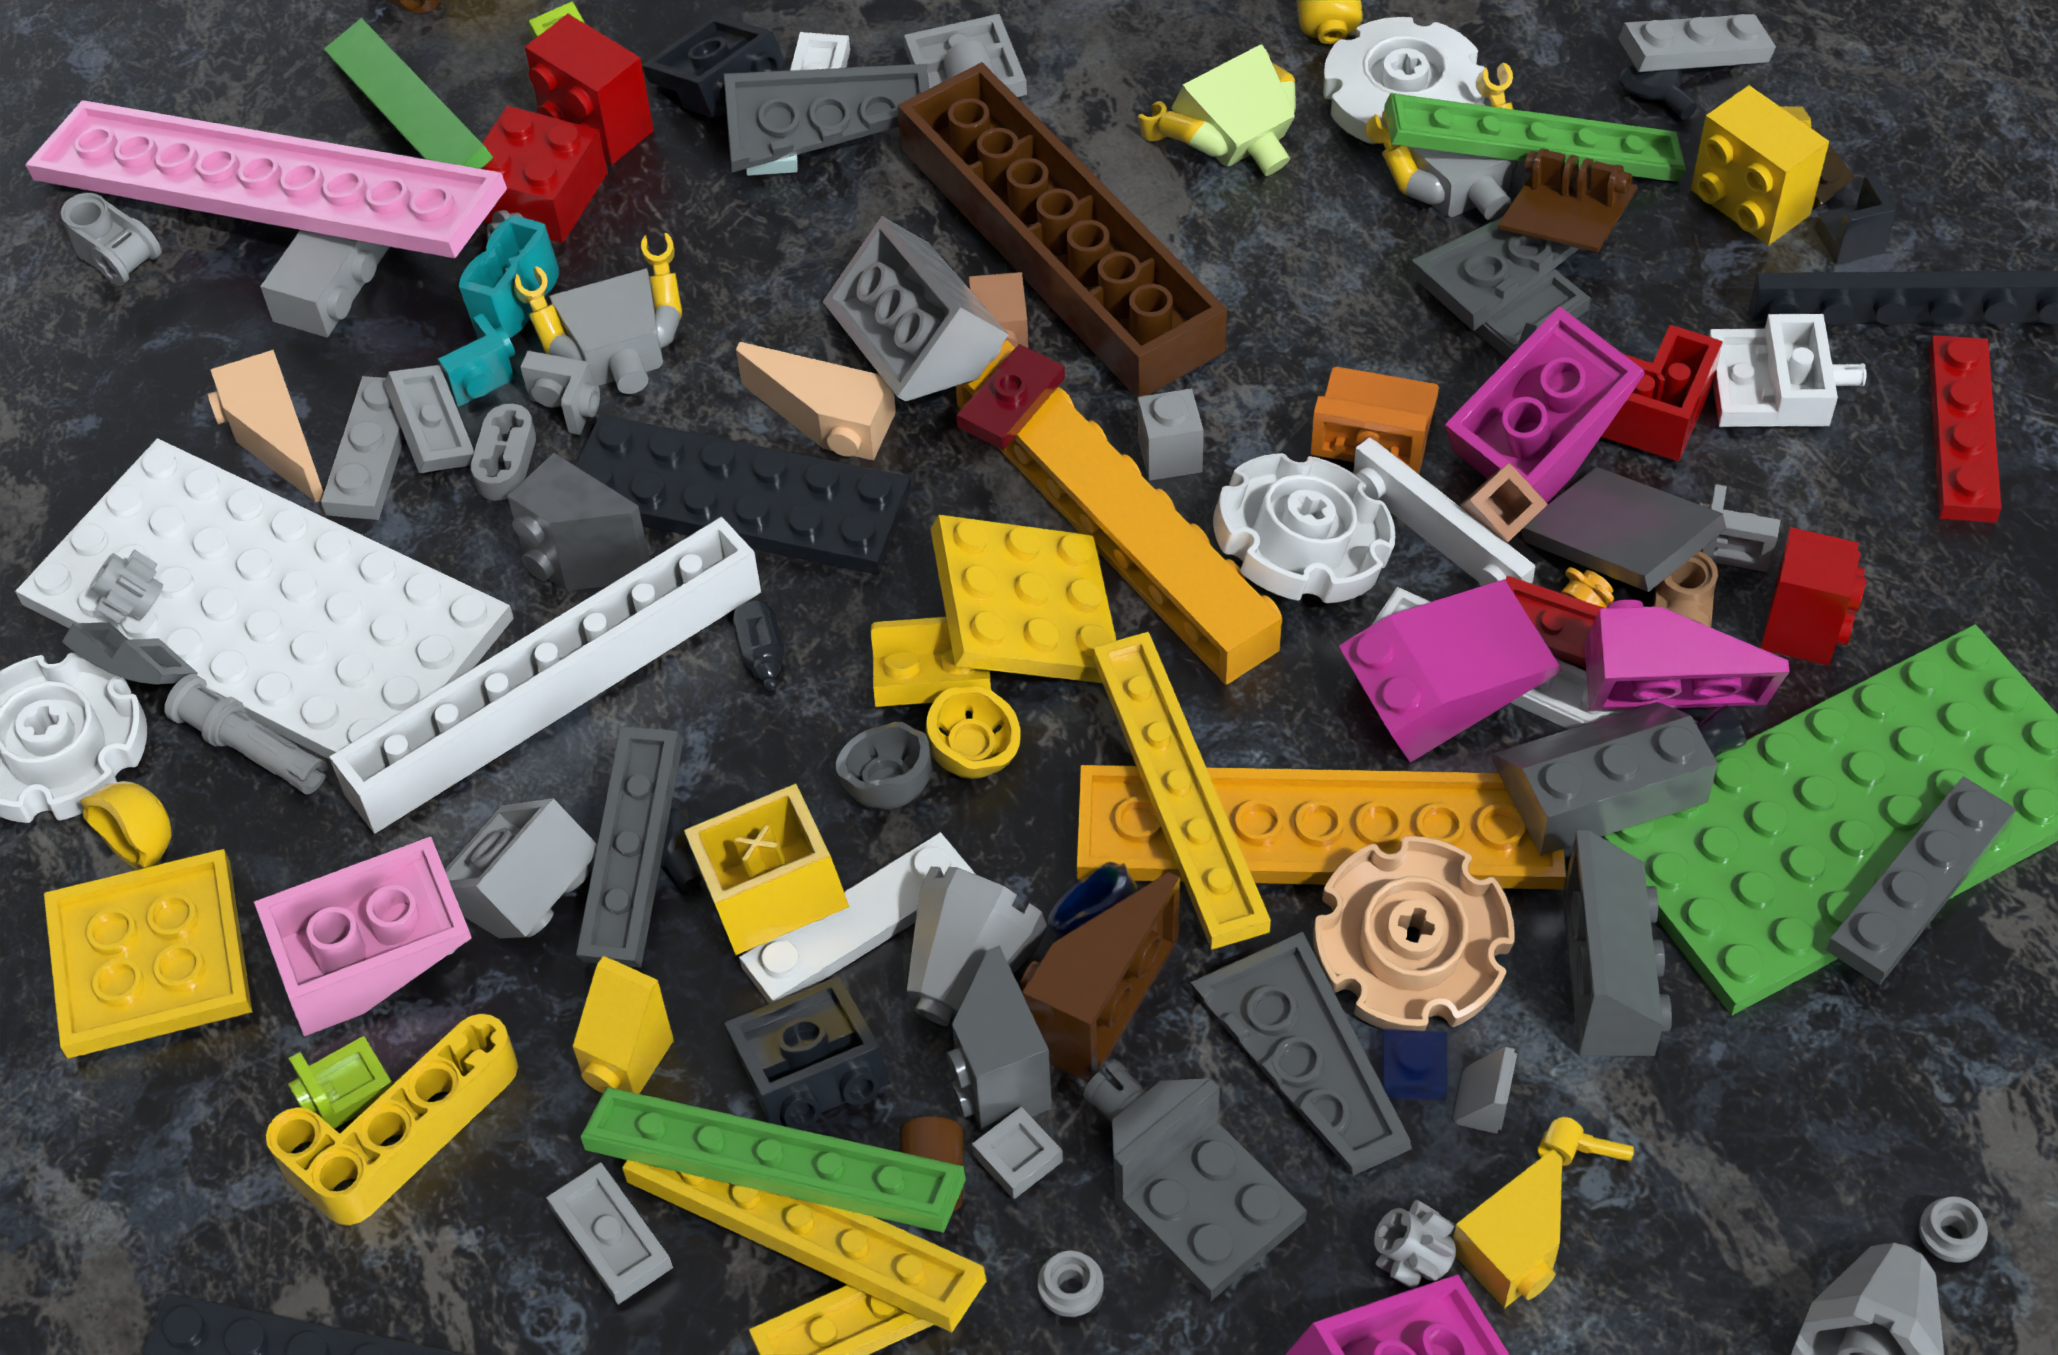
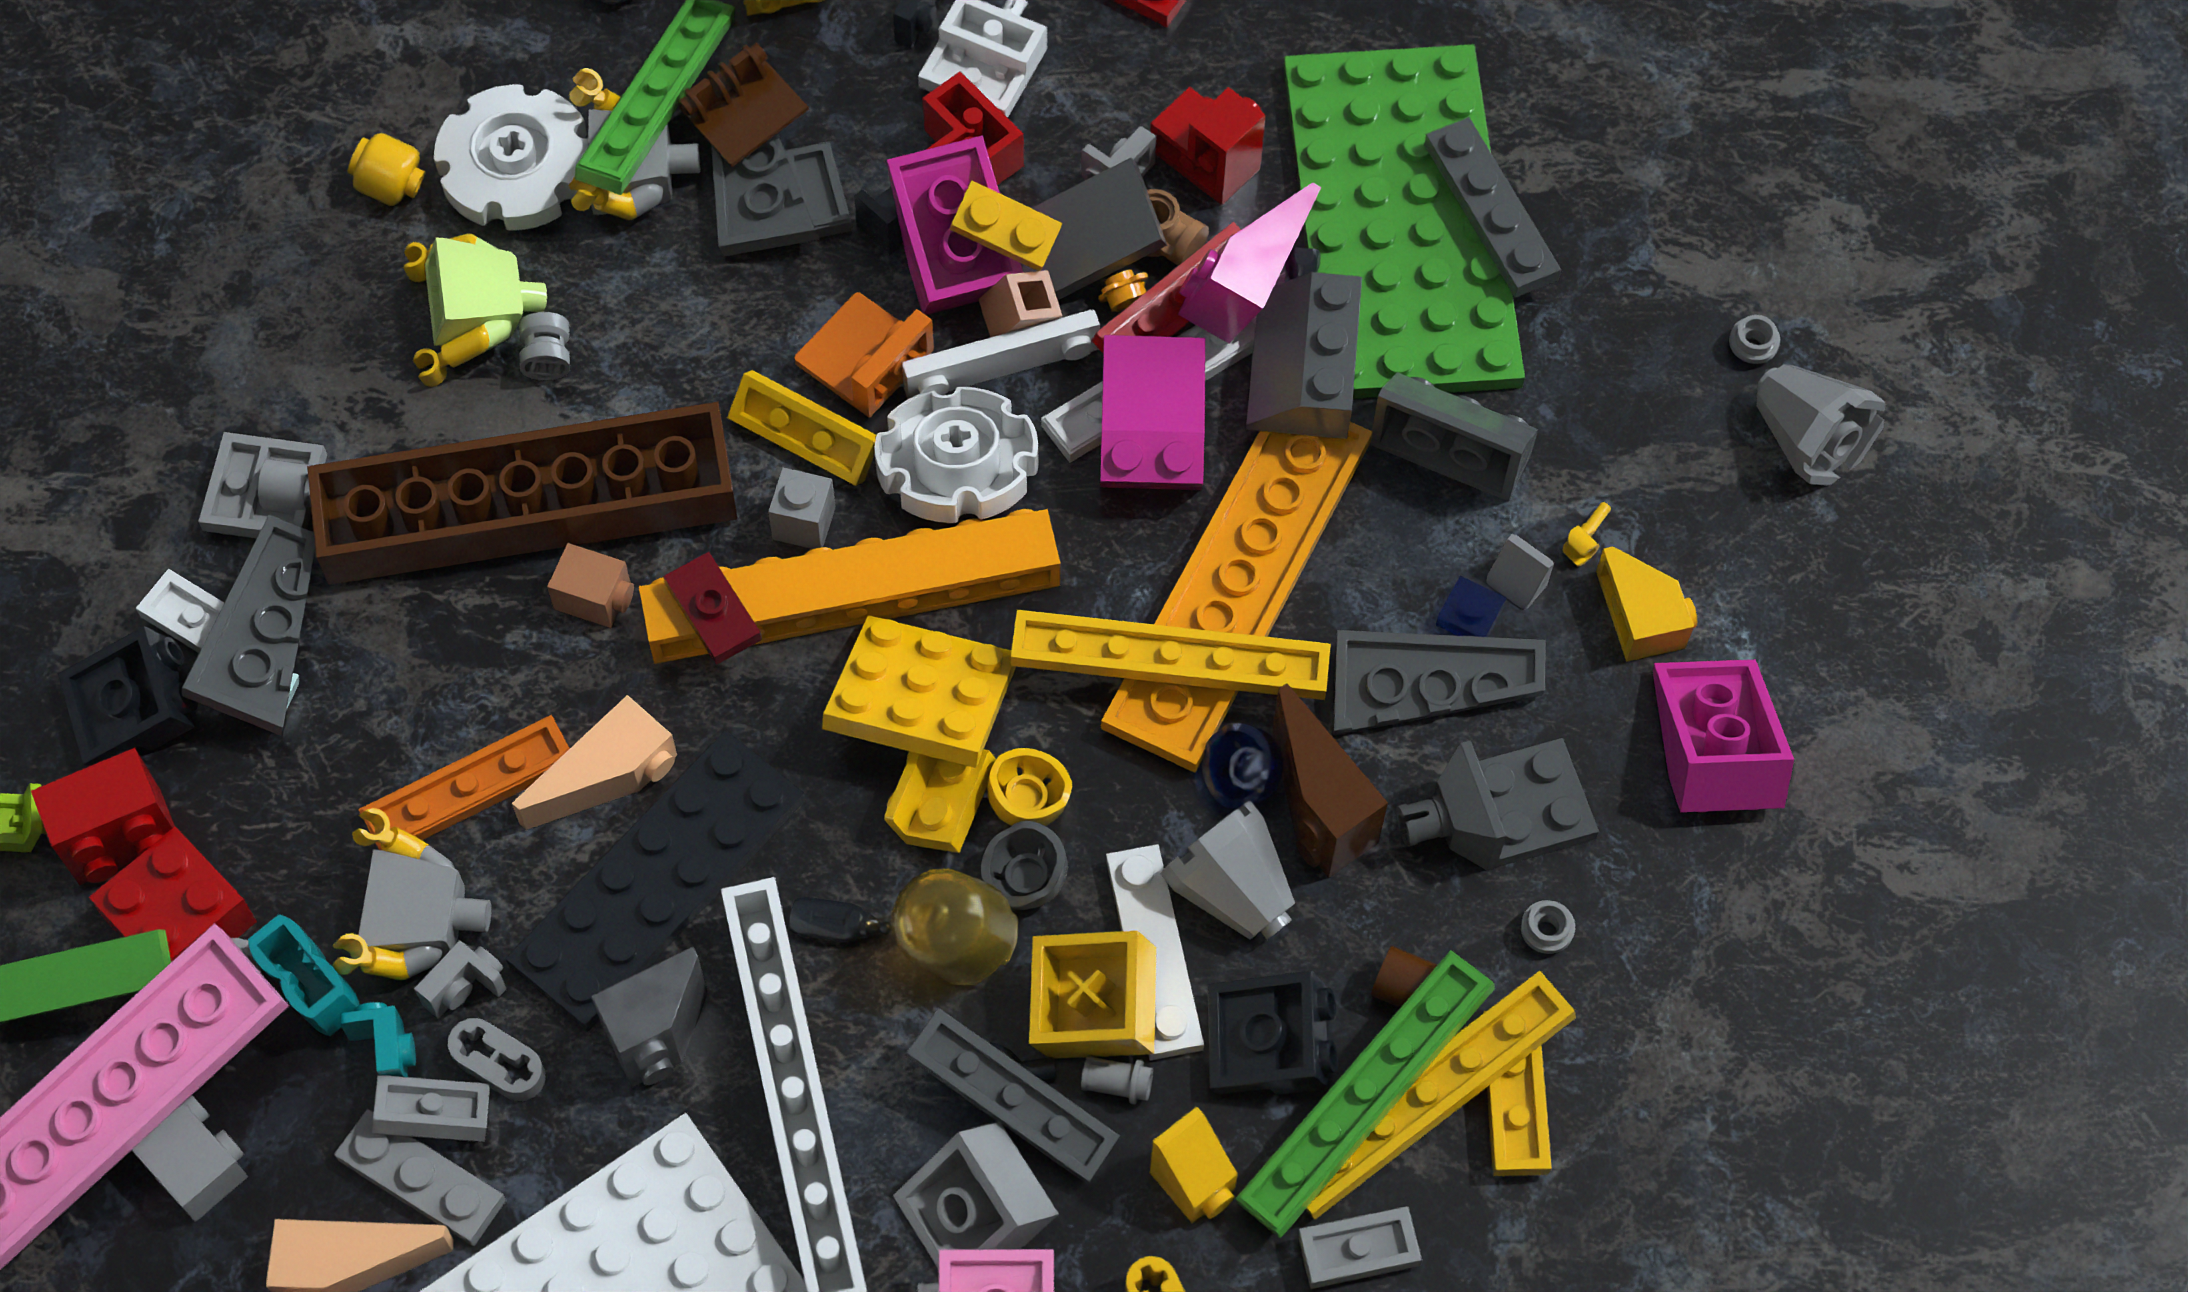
camera: 70 degrees left, 10 degrees up
(702, 951) = (1117, 1078): none -> light grey pin
(755, 318) = (473, 781): none -> orange tile
(780, 717) = (954, 926): none -> clear yellow cylinder
(913, 314) = (568, 649): light grey slope -> none
(998, 1049) = (1345, 885): dark grey slope -> none
(1017, 1152) = (1425, 917): light grey plate -> none
(1223, 184) = (544, 348): none -> light grey wheel
(1261, 397) = (803, 427): none -> yellow plate
(1415, 1244) = (1619, 690): light grey gear -> none
(1459, 924) = (1381, 520): light nougat piece -> none
(1563, 439) = (1005, 226): none -> yellow plate

